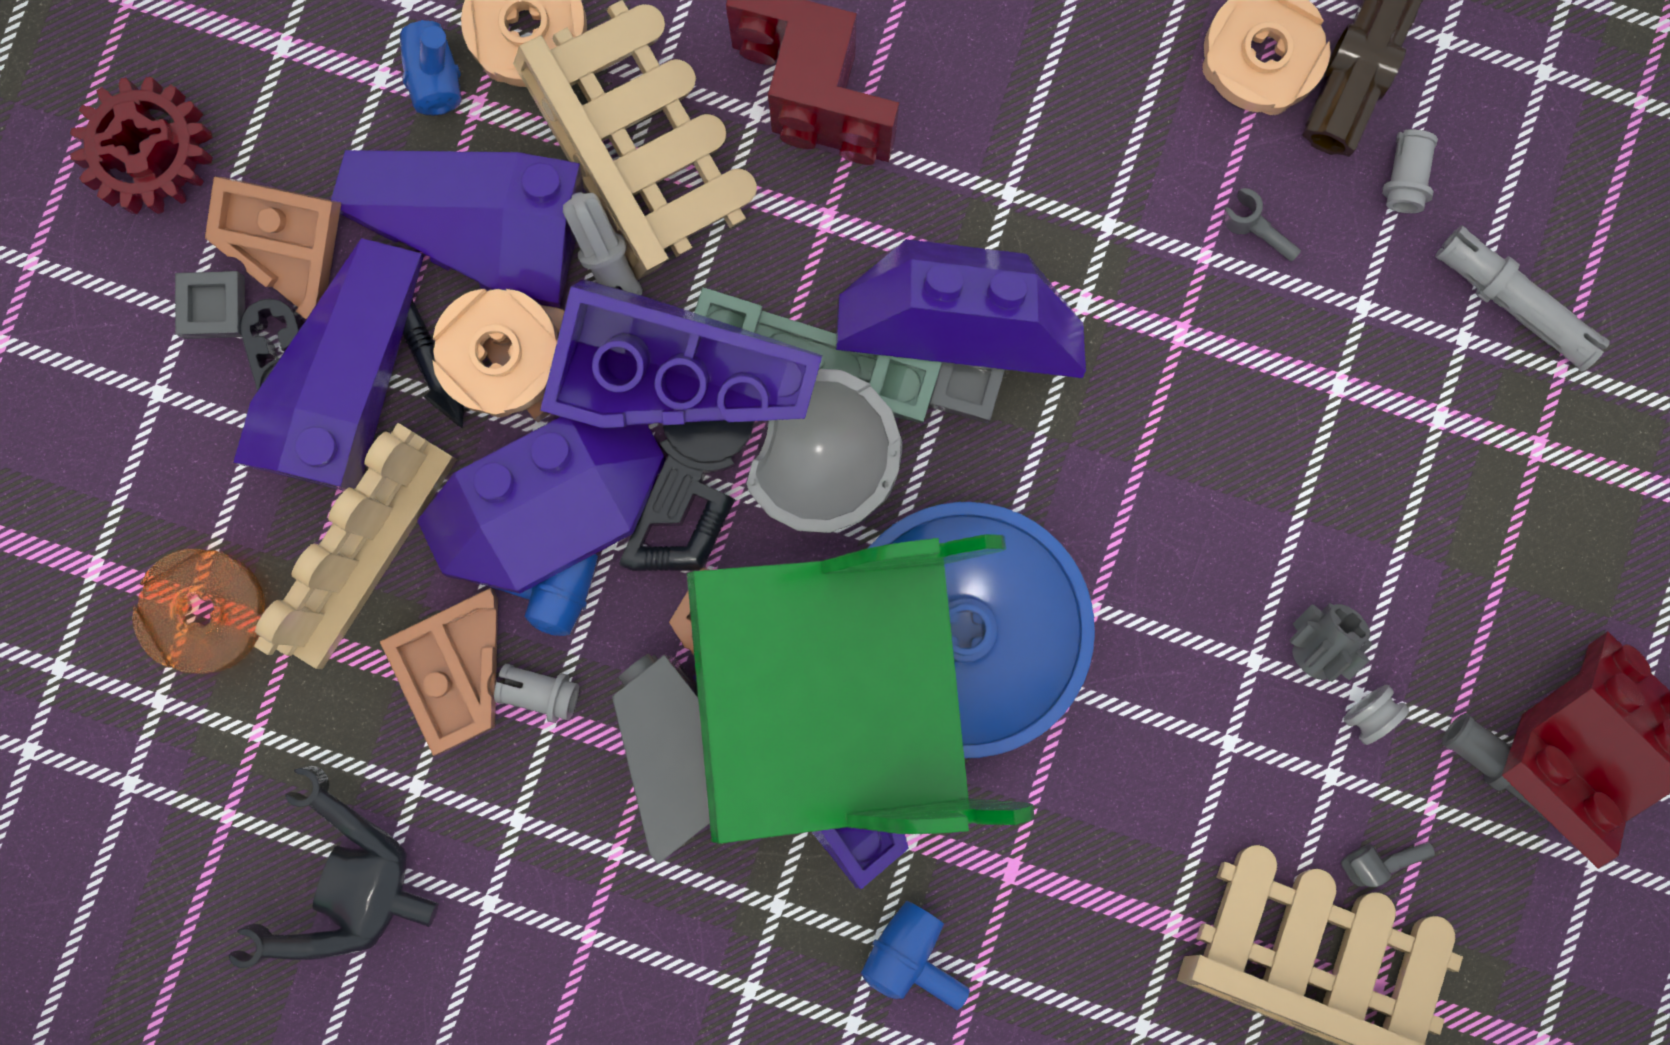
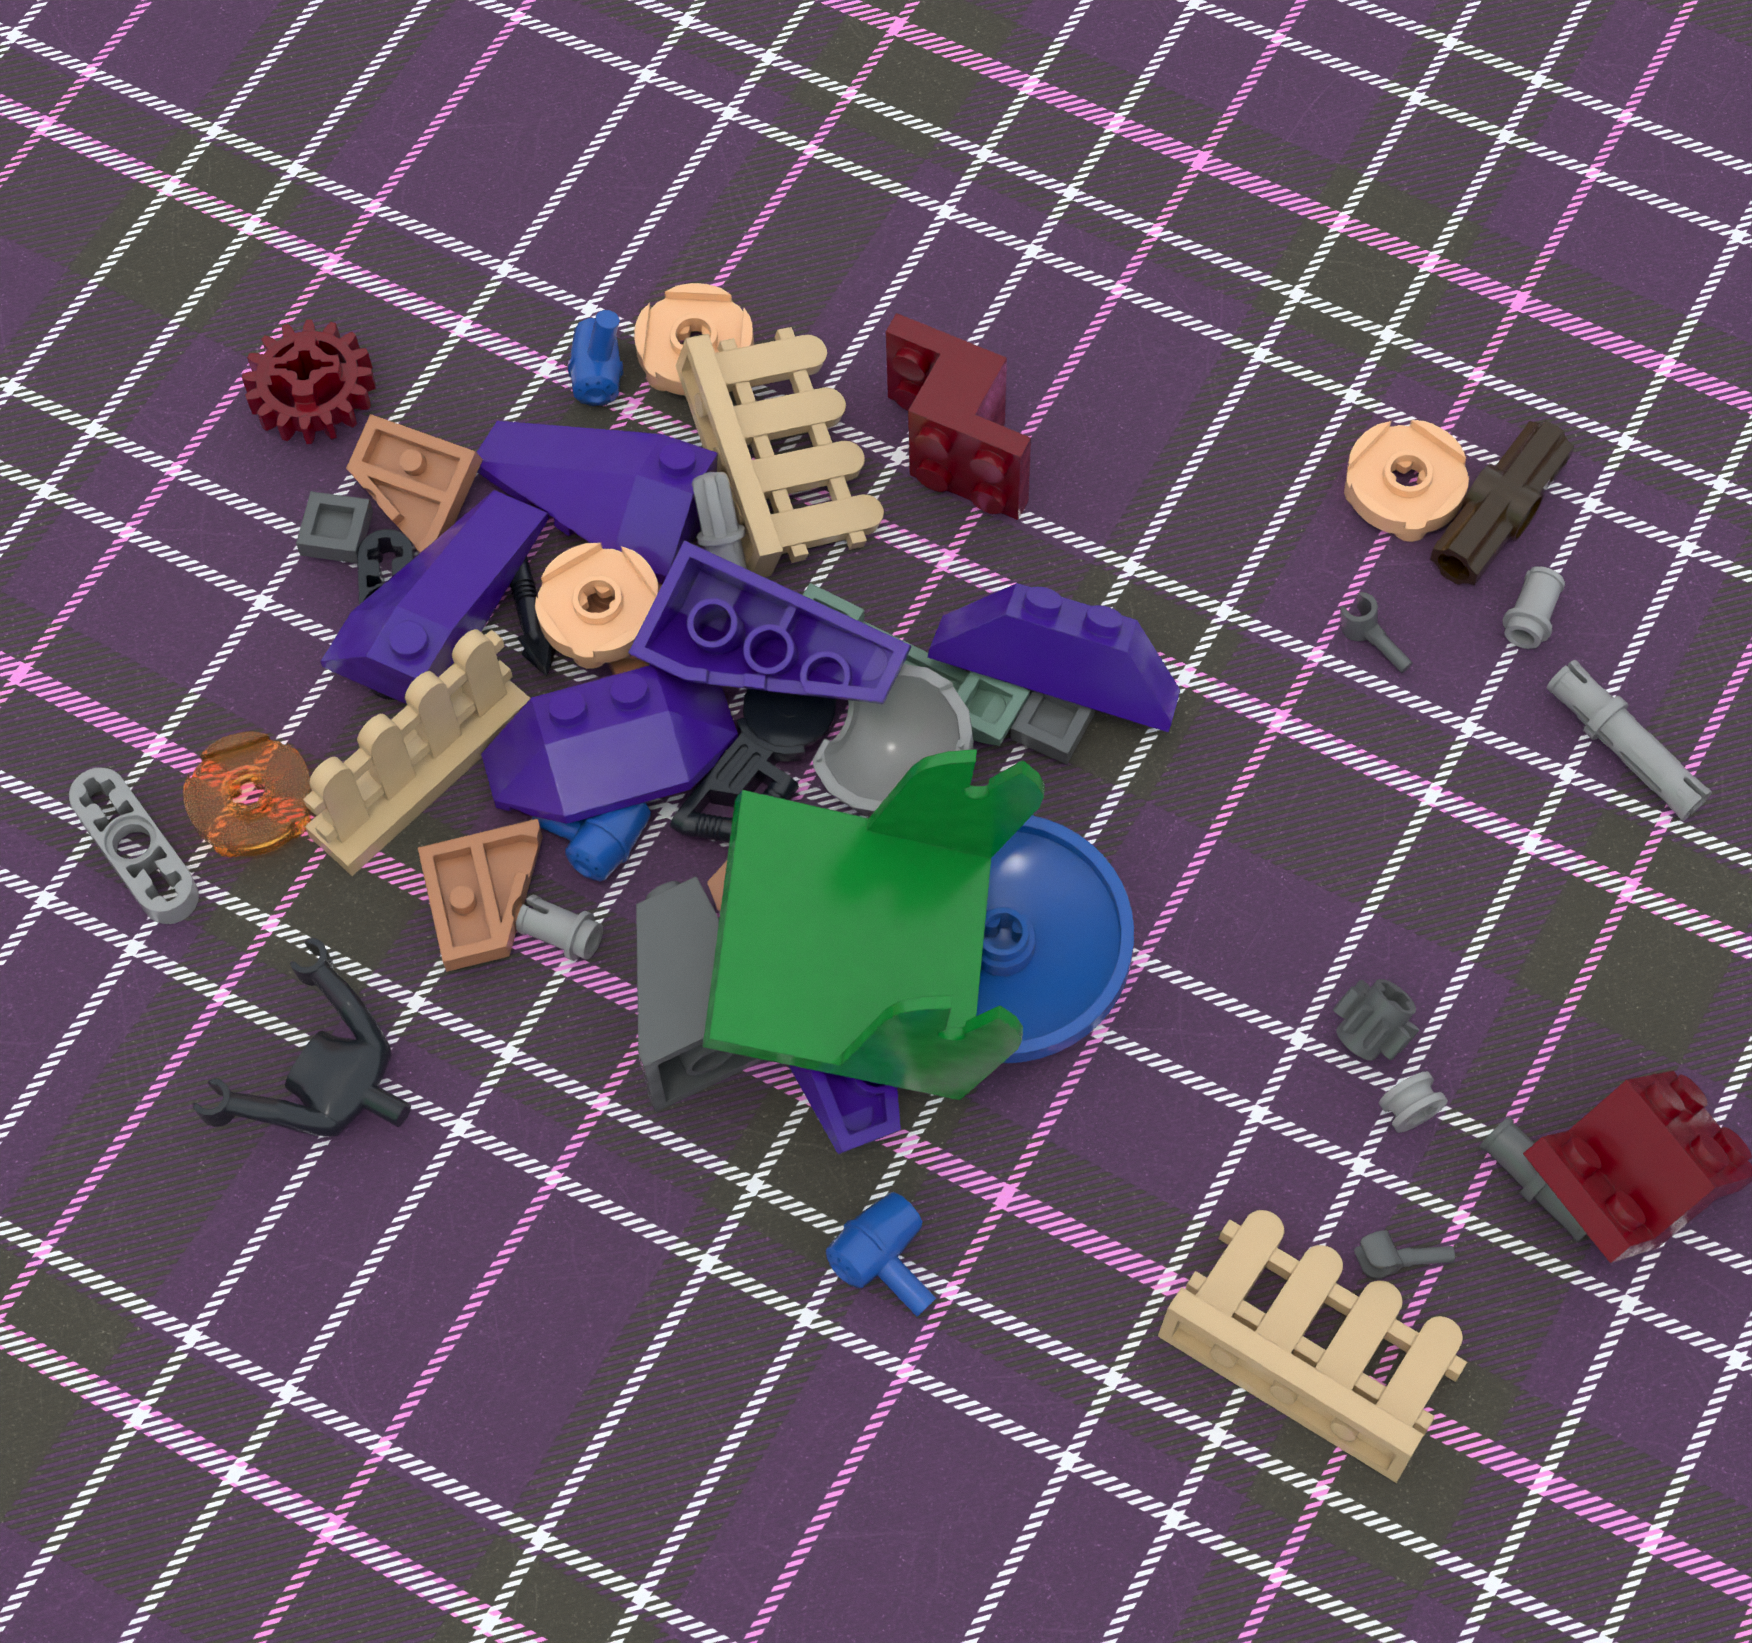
camera: 15 degrees right, 20 degrees down
(78, 642) = (134, 871): none -> light grey beam

